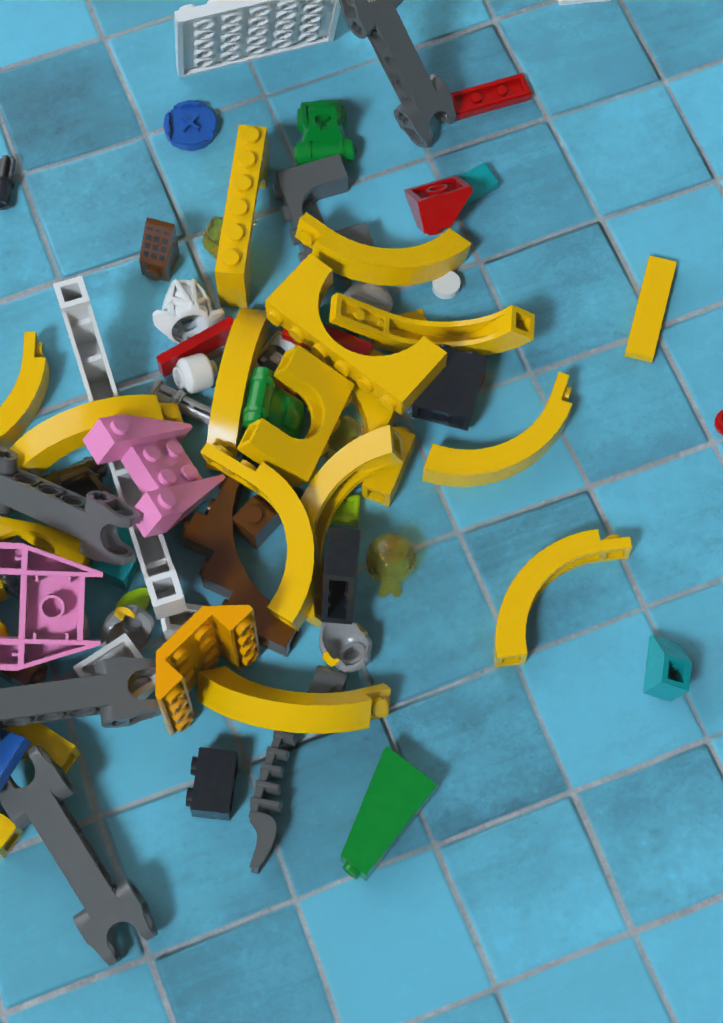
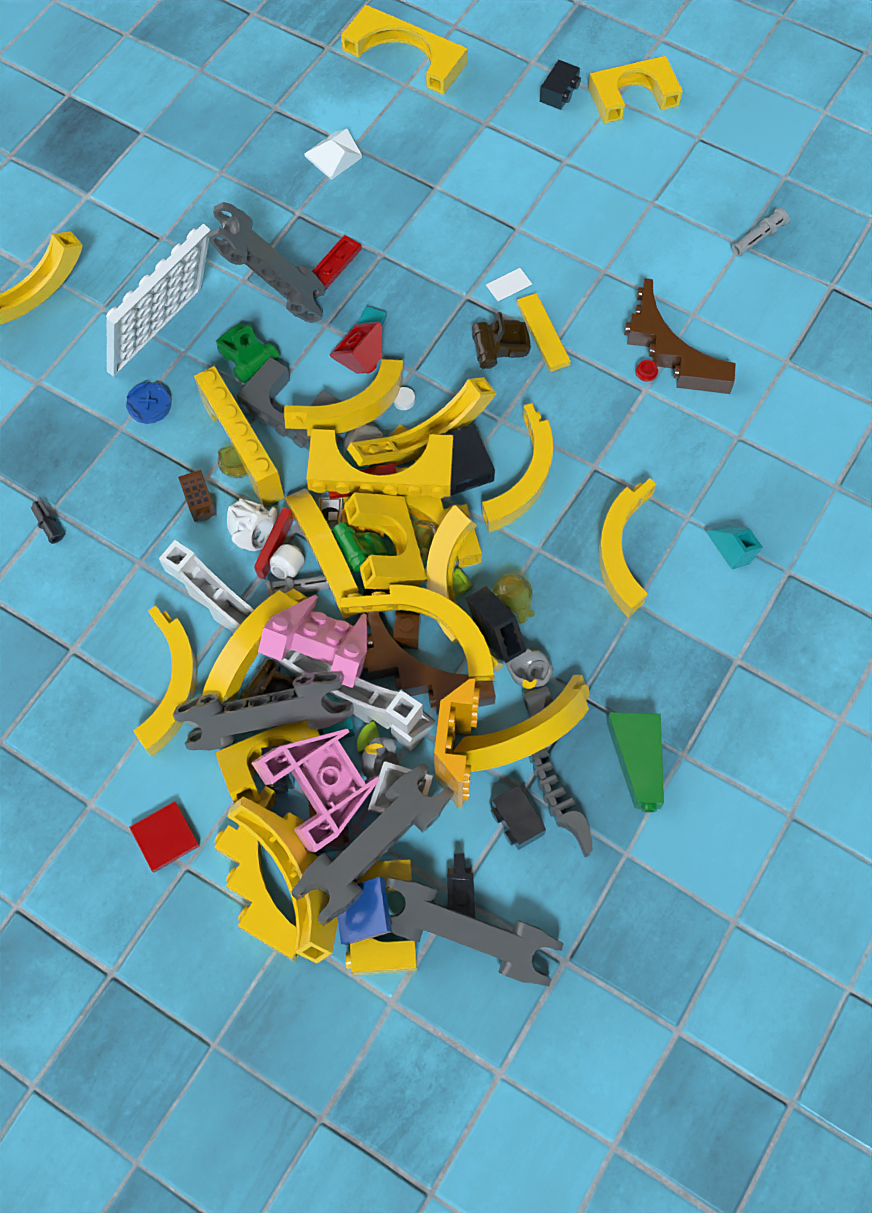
camera: 35 degrees left, 0 degrees up
(105, 809) = (461, 887): none -> black hinge
(593, 287) = (500, 340): none -> dark brown piece
(657, 234) = (508, 284): none -> white sticker

